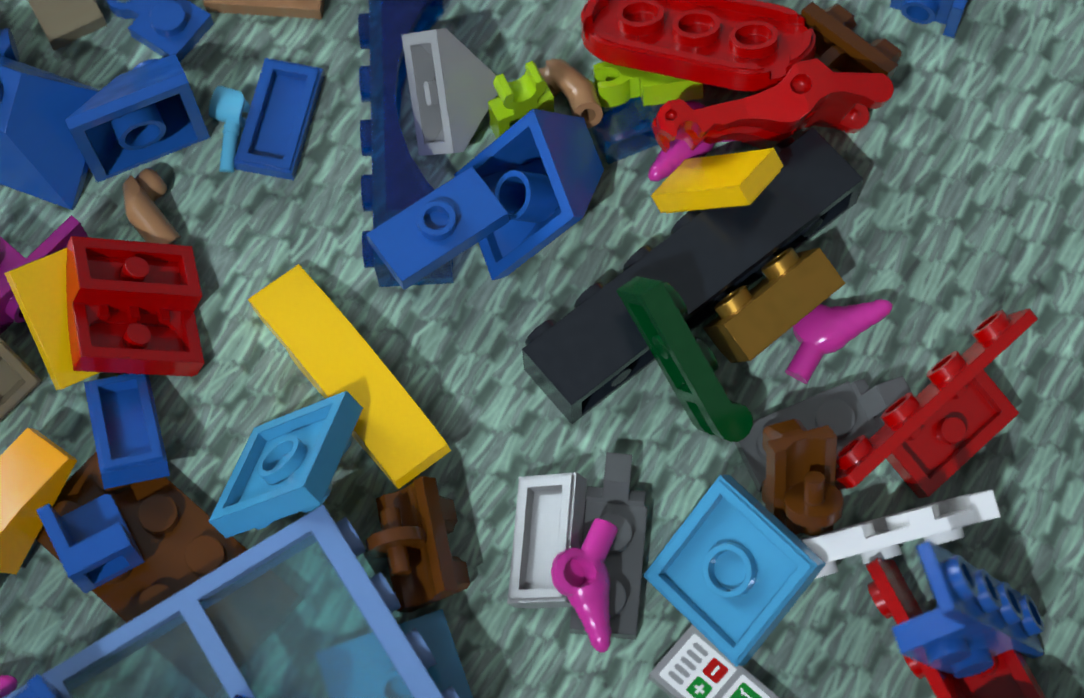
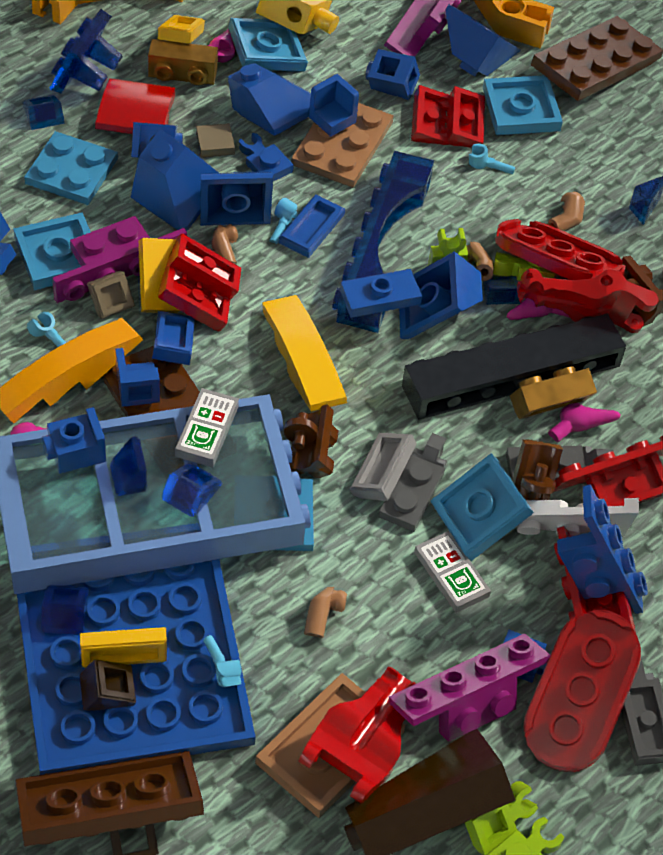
camera: 10 degrees right, 15 degrees down
(242, 617) = (207, 427): none -> tile
(287, 465) = (259, 375): dark azure plate -> none
(446, 90) = (409, 234): light grey slope -> none
(586, 581) = (398, 484): dark pink animal -> none
(684, 359) = (492, 396): dark green plate -> none
(718, 181) = (543, 321): yellow tile -> none

